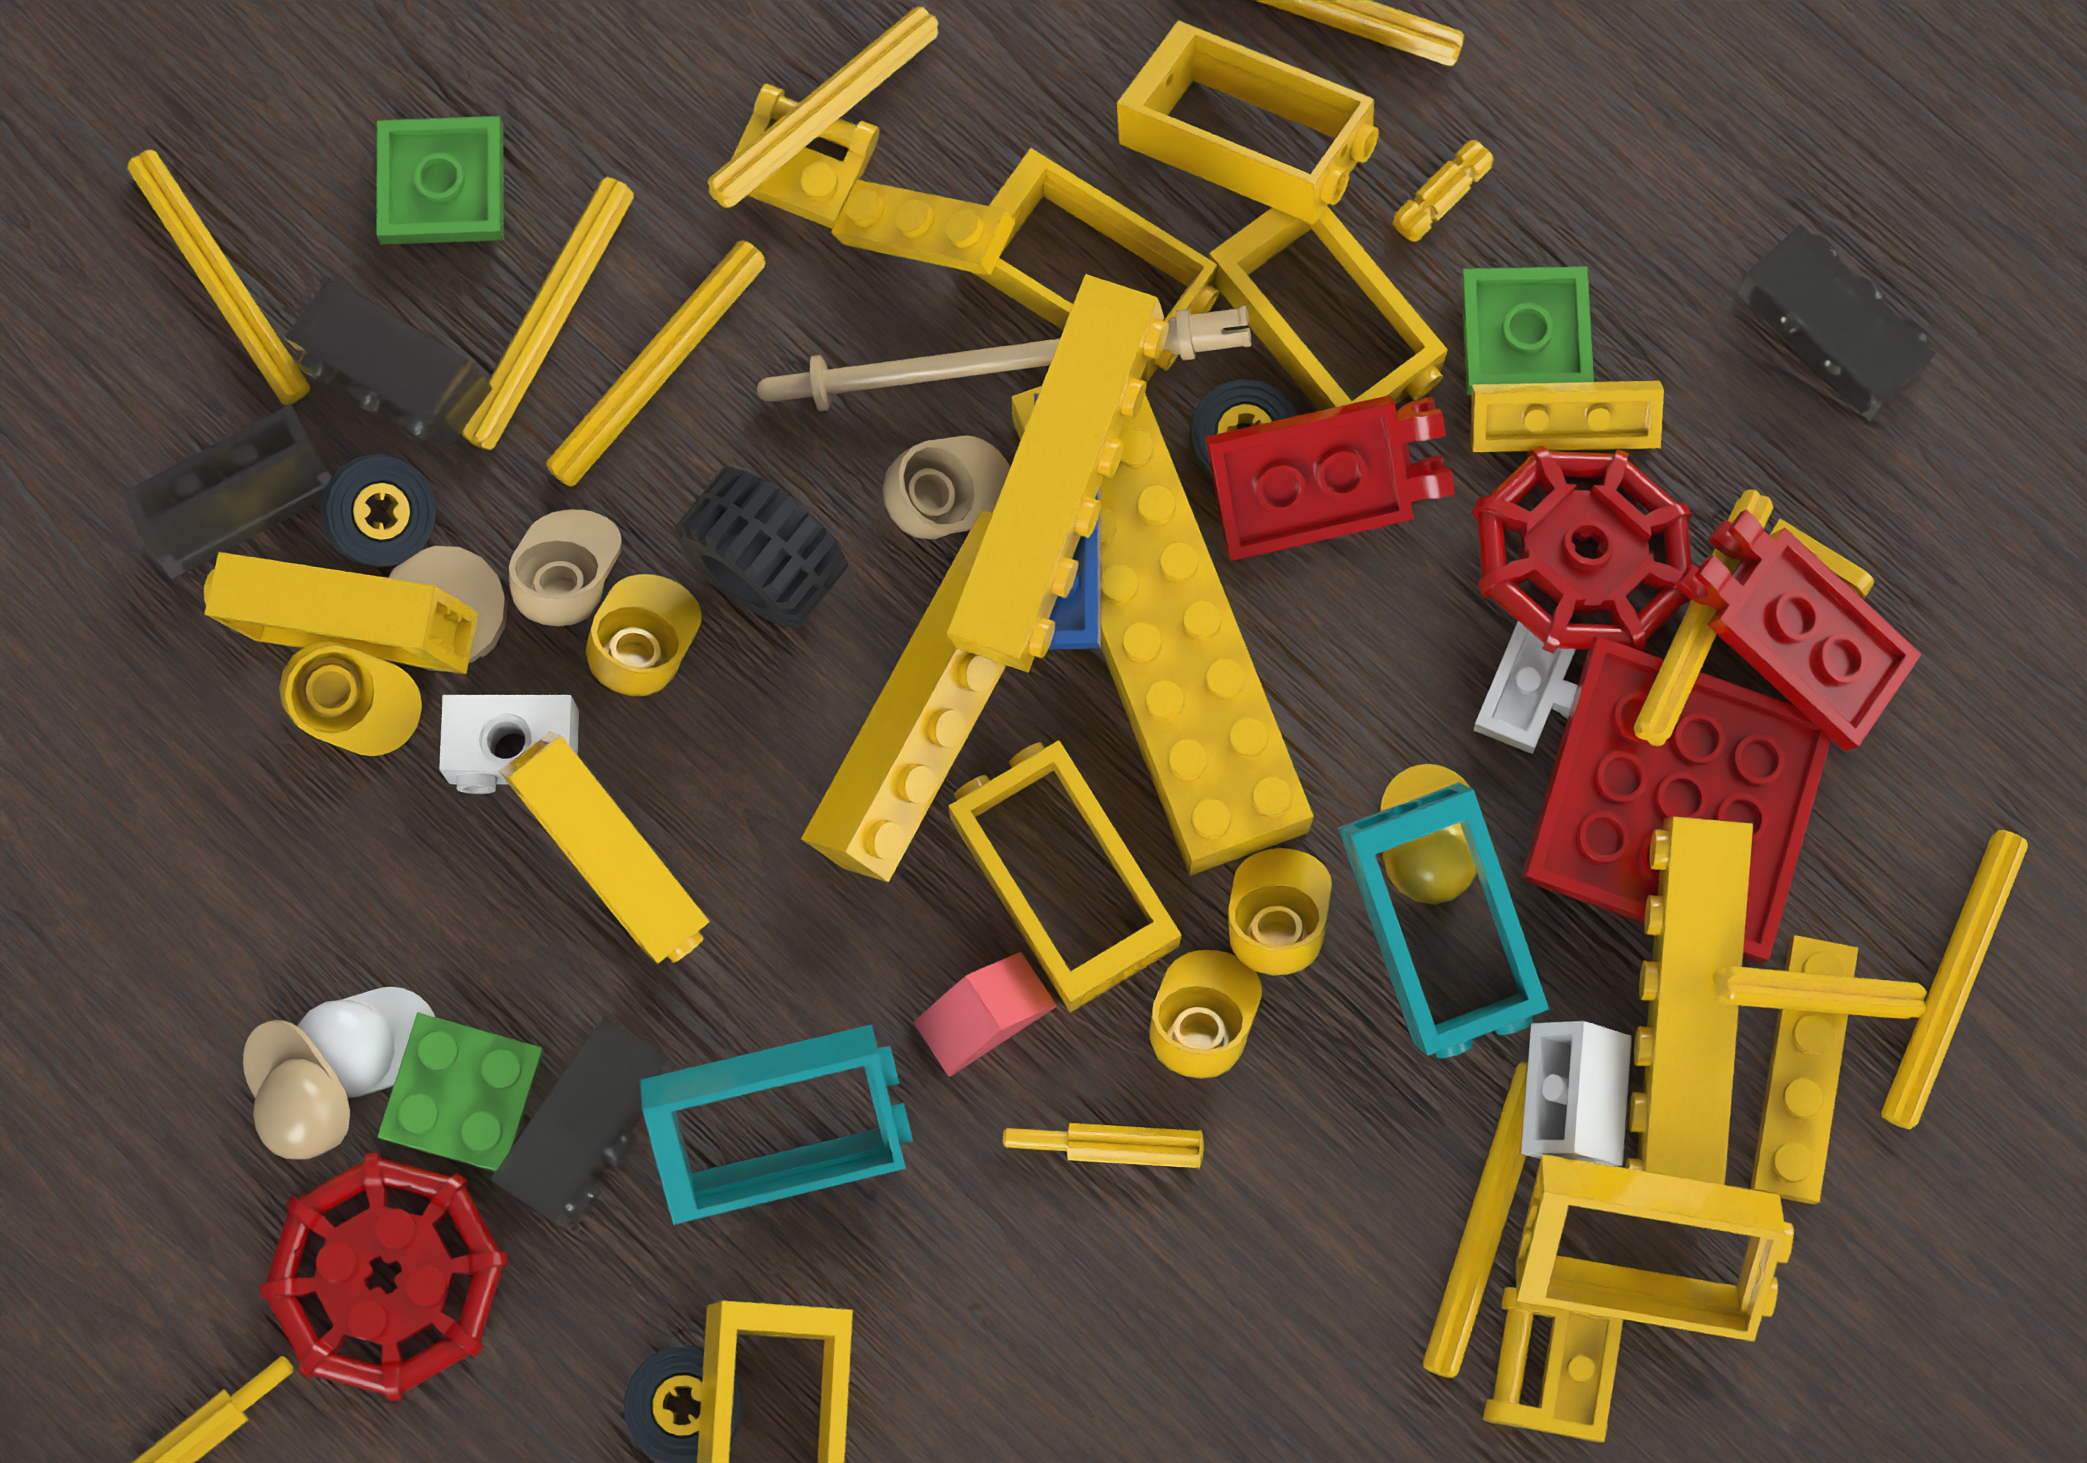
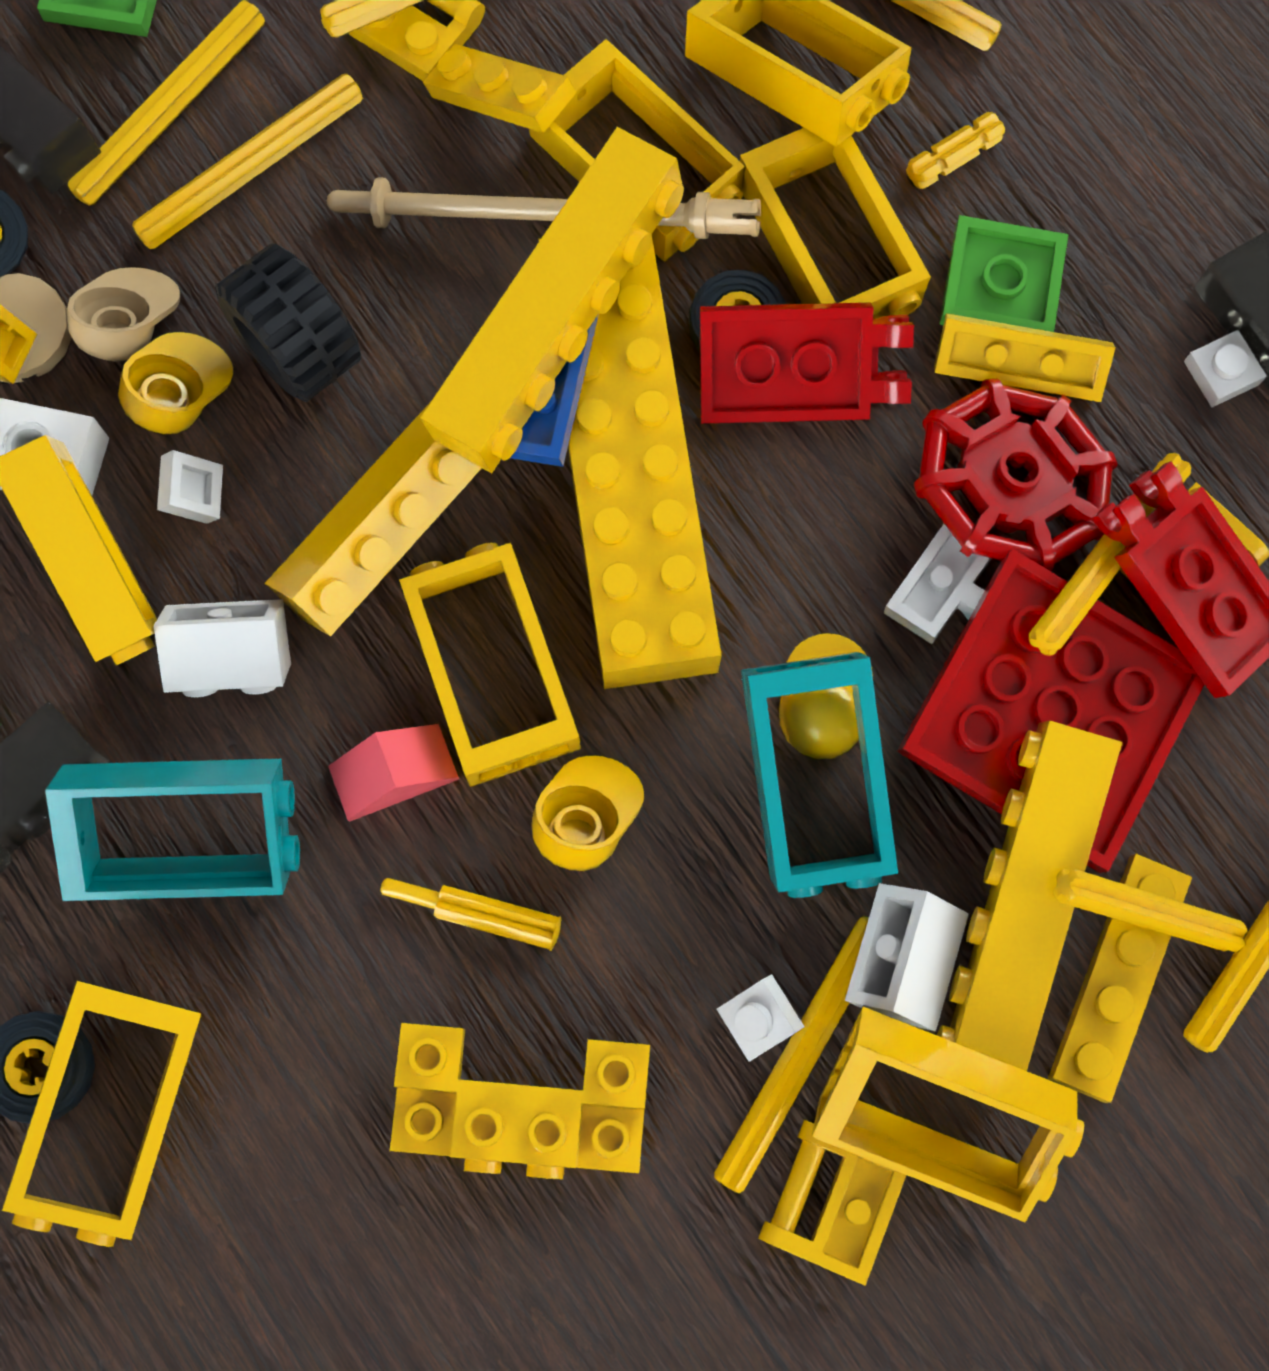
camera: 10 degrees right, 0 degrees up
(689, 748) = (190, 487): none -> white plate
(774, 917) = (223, 647): none -> white brick
(943, 485) = (454, 304): tan cap -> none
(1207, 1352) = (518, 1122): none -> yellow bracket
(1279, 910) = (673, 735): yellow cap -> none
(1436, 1191) = (760, 1017): none -> white plate
(1788, 381) = (1225, 368): none -> white plate

